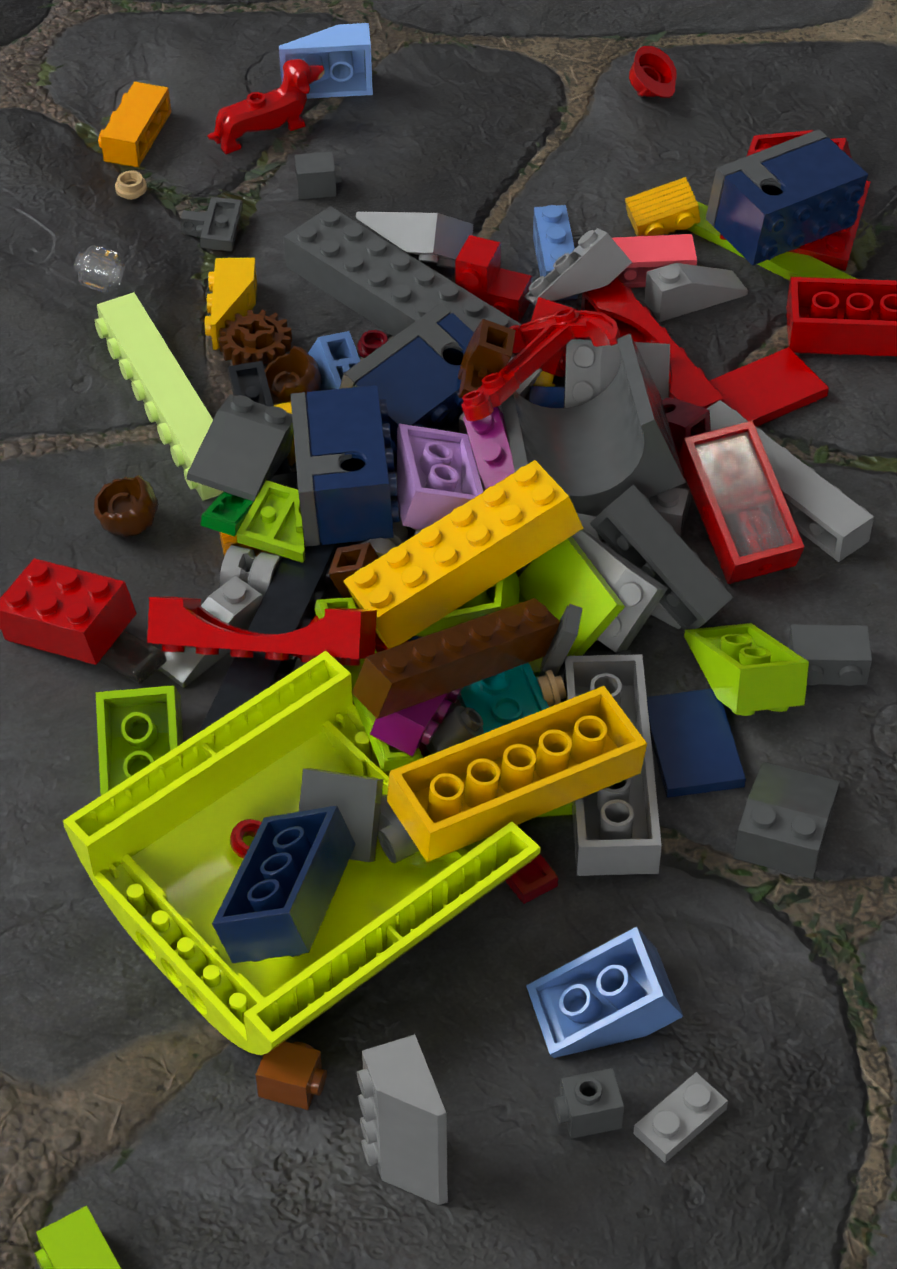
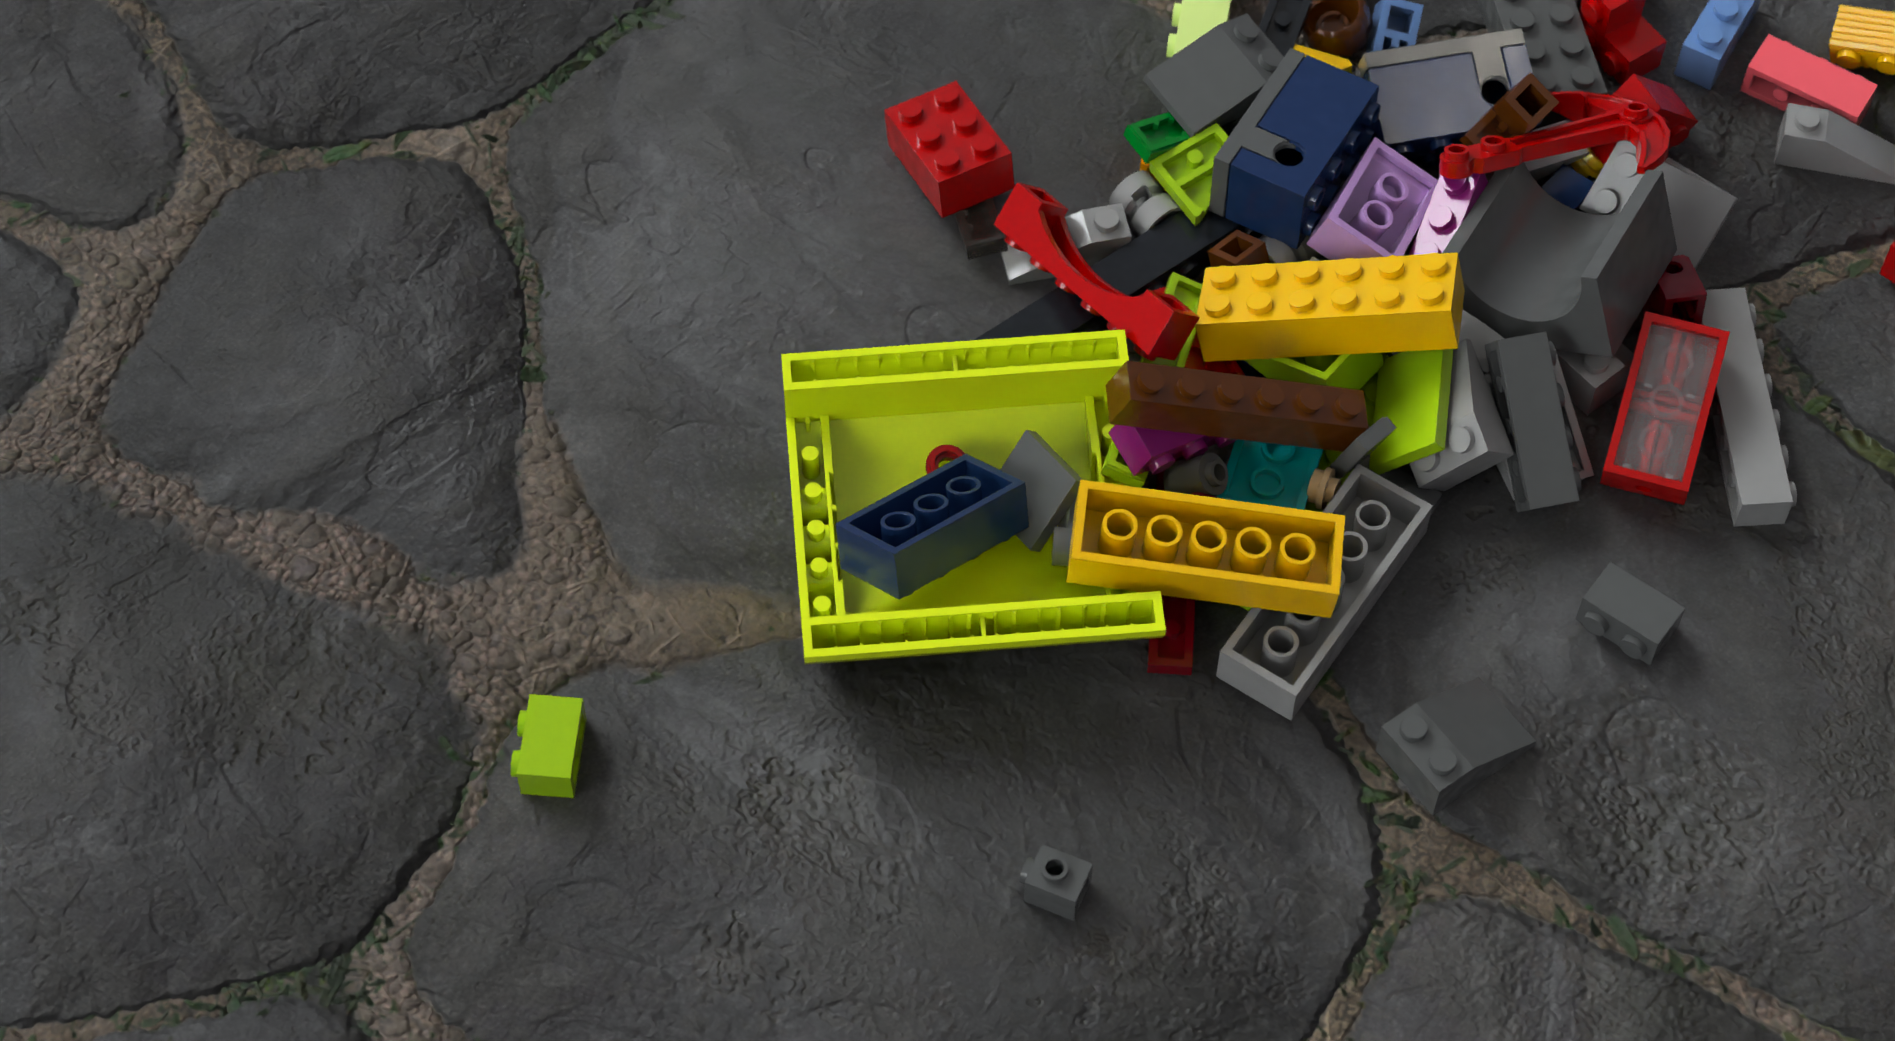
camera: 35 degrees right, 10 degrees up
(126, 506) = (1082, 73): reddish brown hair -> none
(135, 730) = (927, 305): lime slope -> none
(291, 1074) = (829, 695): dark orange brick -> none
(370, 342) = (1453, 26): dark red plate -> none
(404, 1119) = (870, 788): light grey slope -> none
(586, 268) = (1718, 66): light grey slope -> none
(605, 997) = (1147, 800): medium blue slope -> none
(619, 303) = (1727, 134): red arch -> none
(680, 1117) = (1128, 944): light grey plate -> none
(693, 743) = (1428, 618): dark blue tile -> none
(749, 668) = (1536, 578): lime slope -> none
(770, 387) = (1818, 301): red tile -> none

